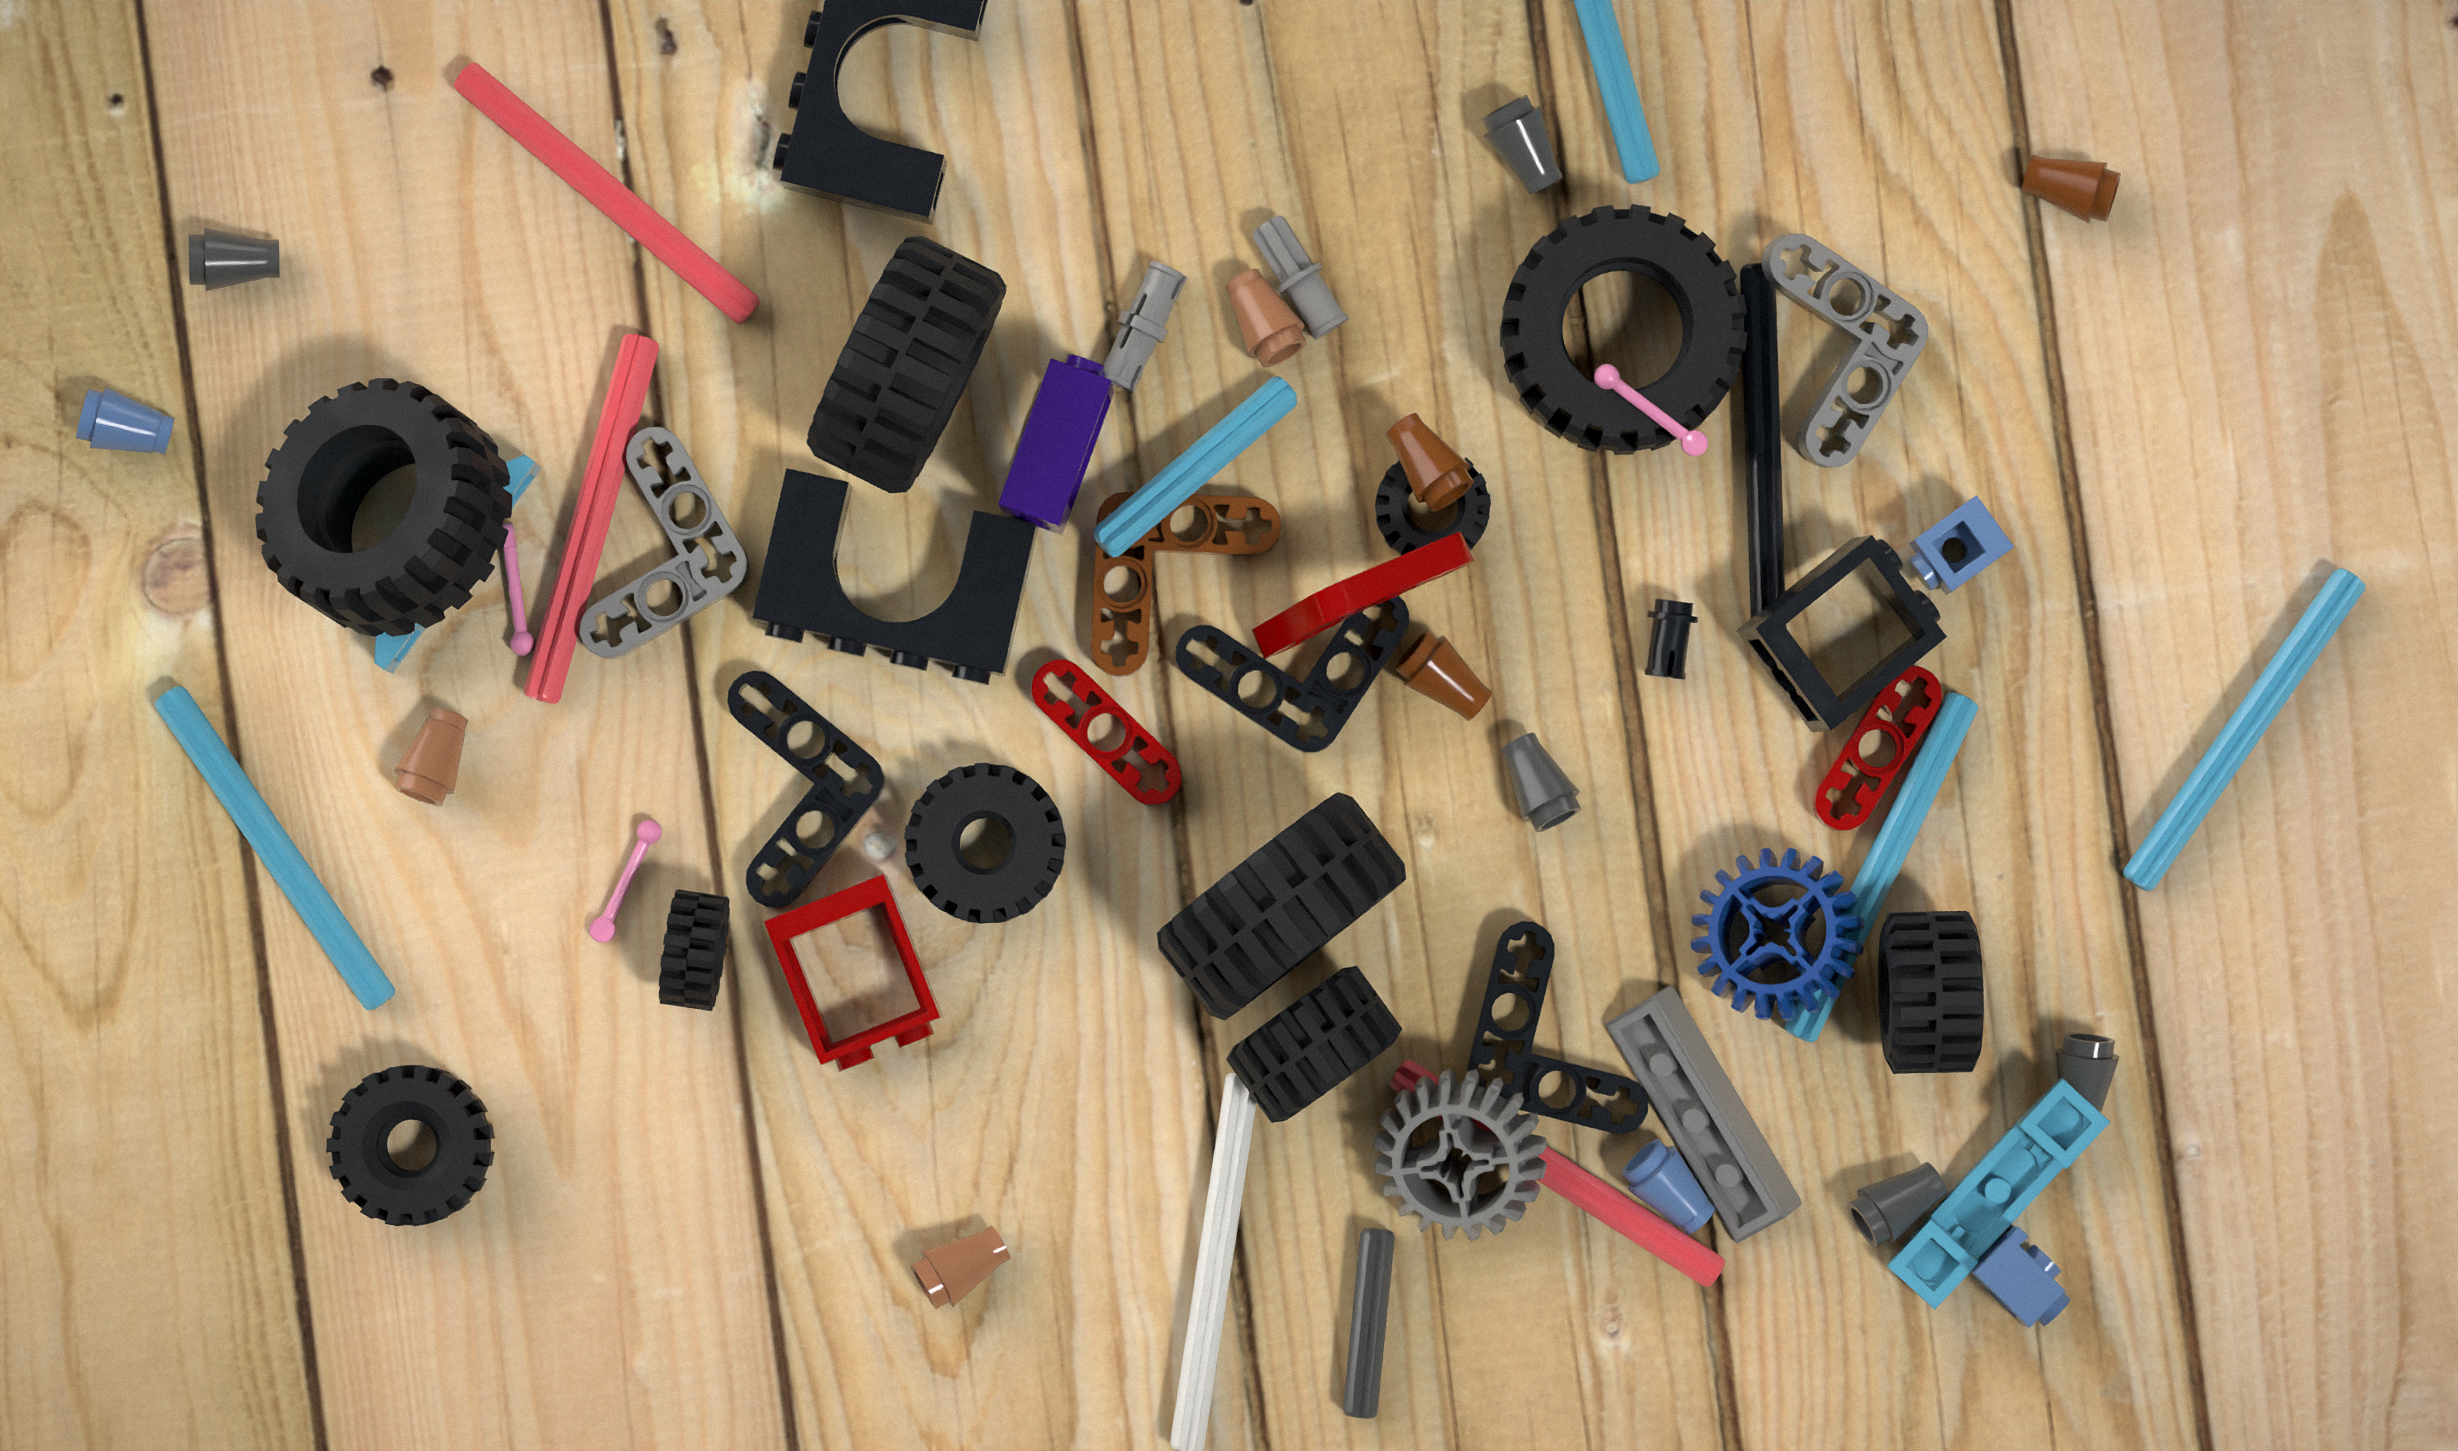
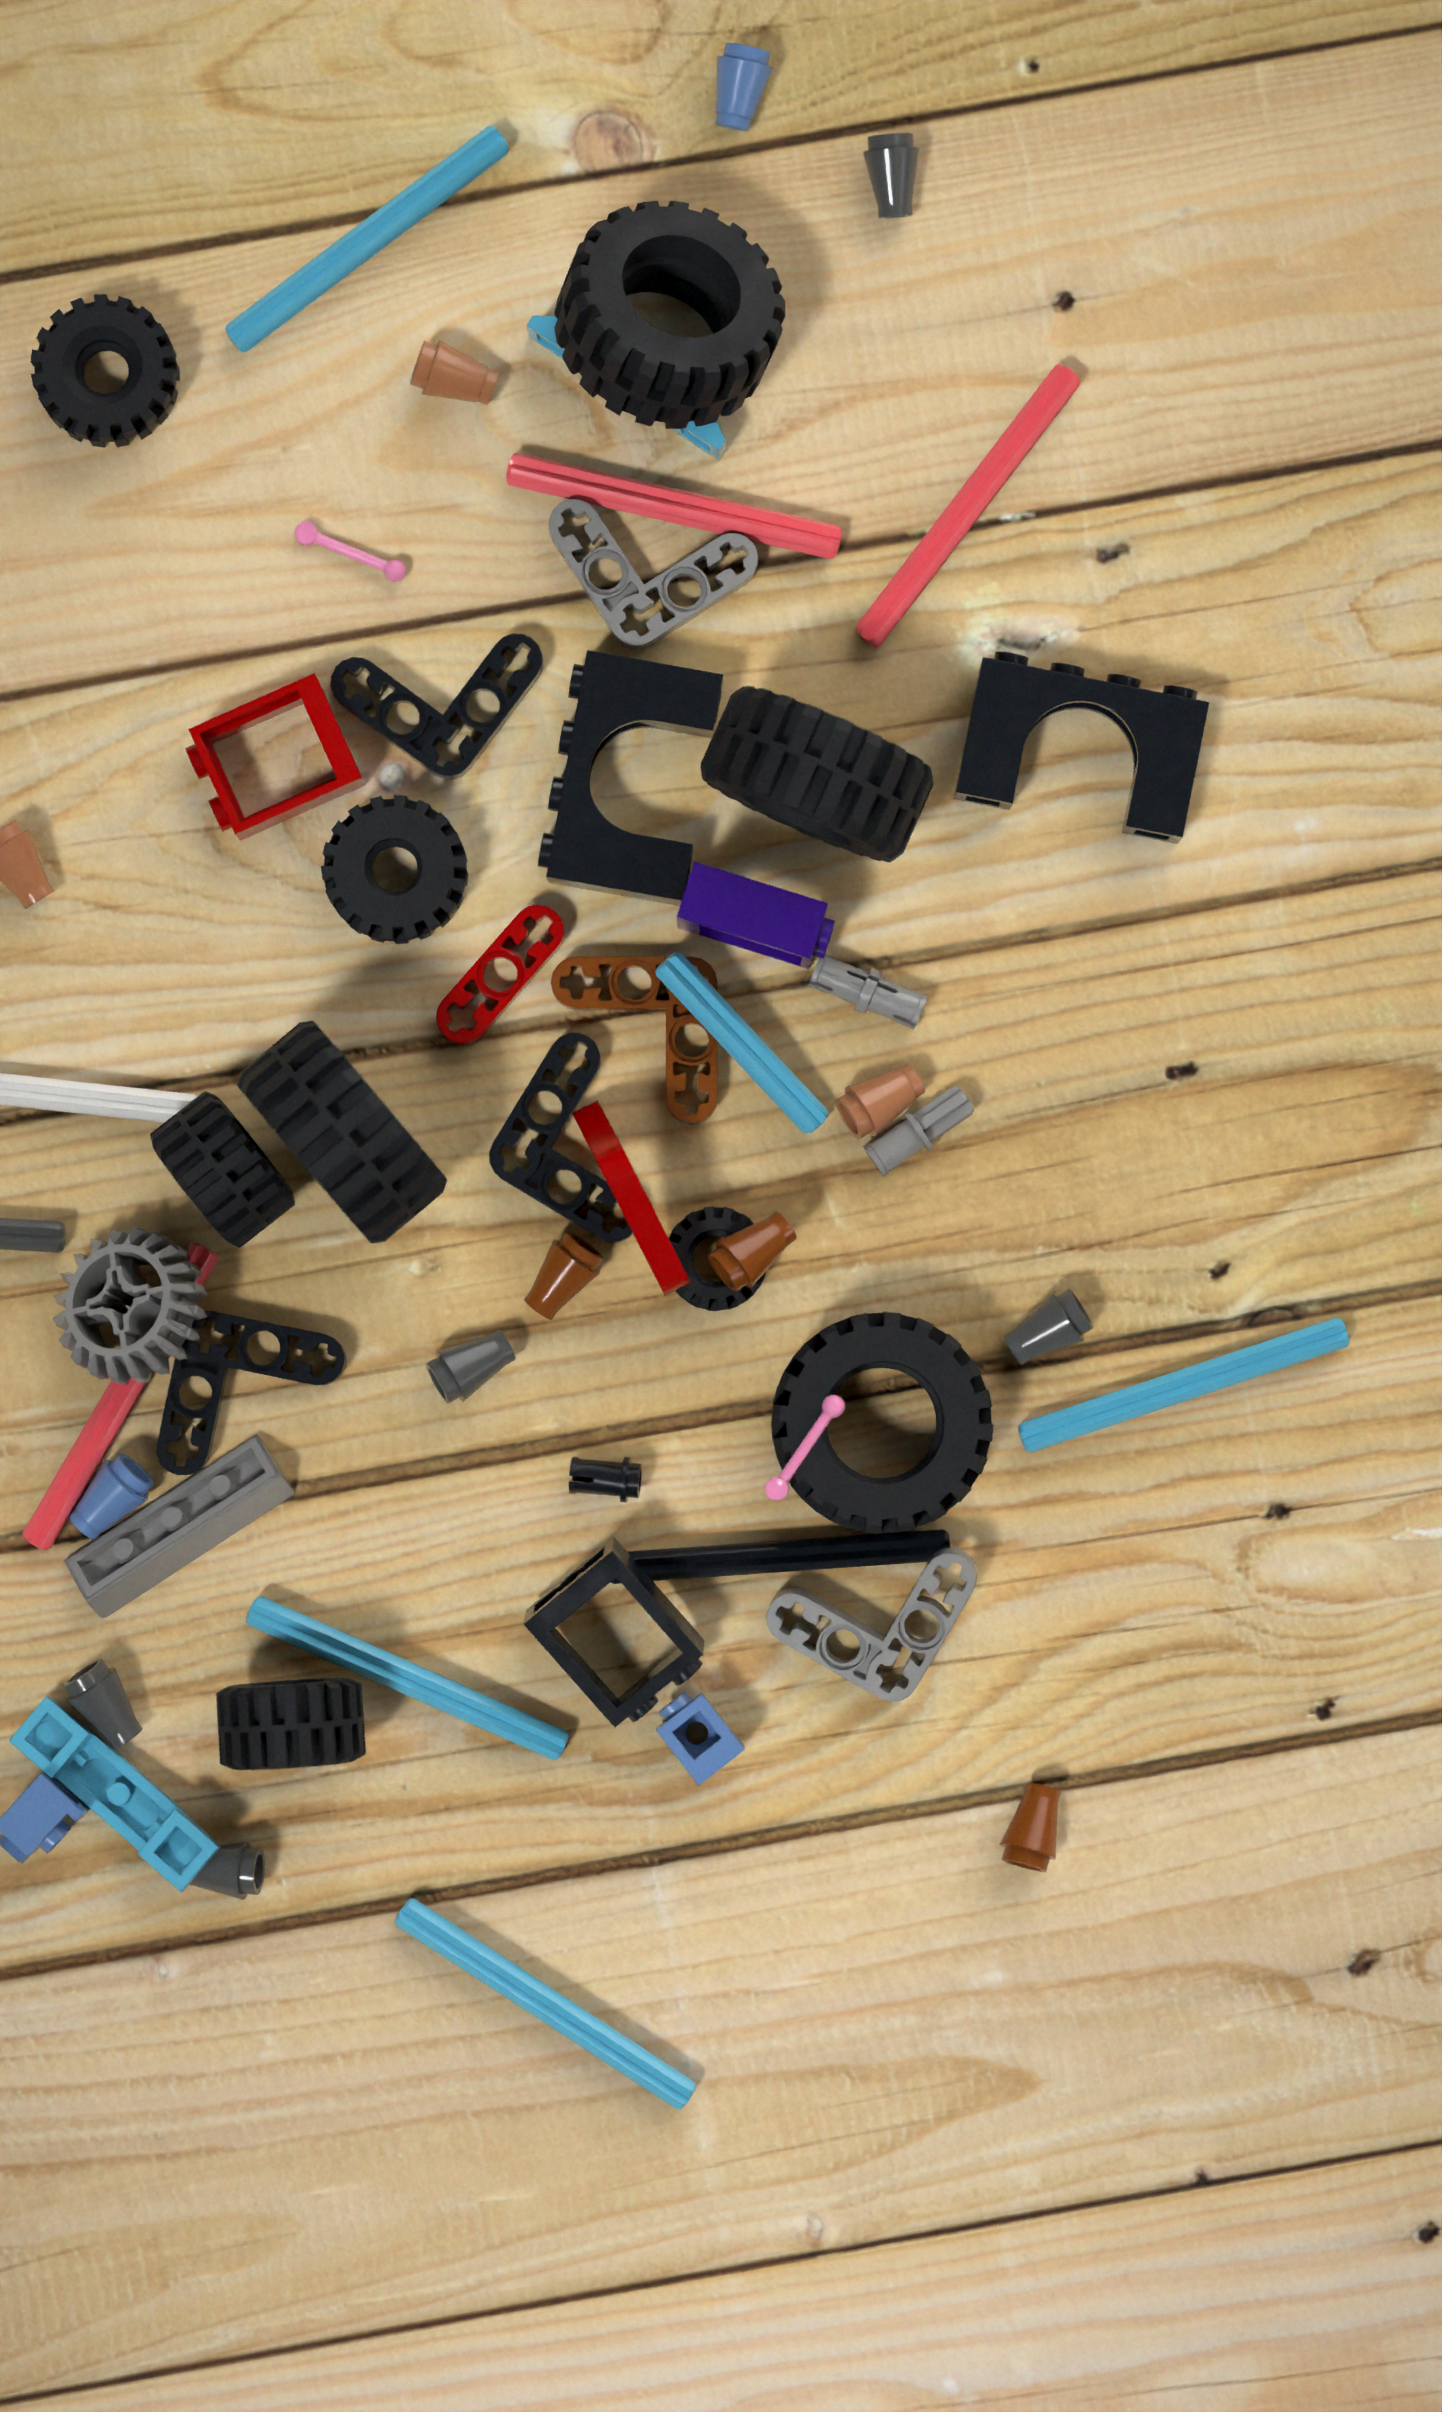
camera: 85 degrees right, 0 degrees up
(521, 642) = (561, 449): bright pink hinge -> none
(694, 950) = (287, 612): black tyre -> none
(1799, 914) = (323, 1566): blue gear -> none
(1864, 797) = (484, 1637): red beam -> none

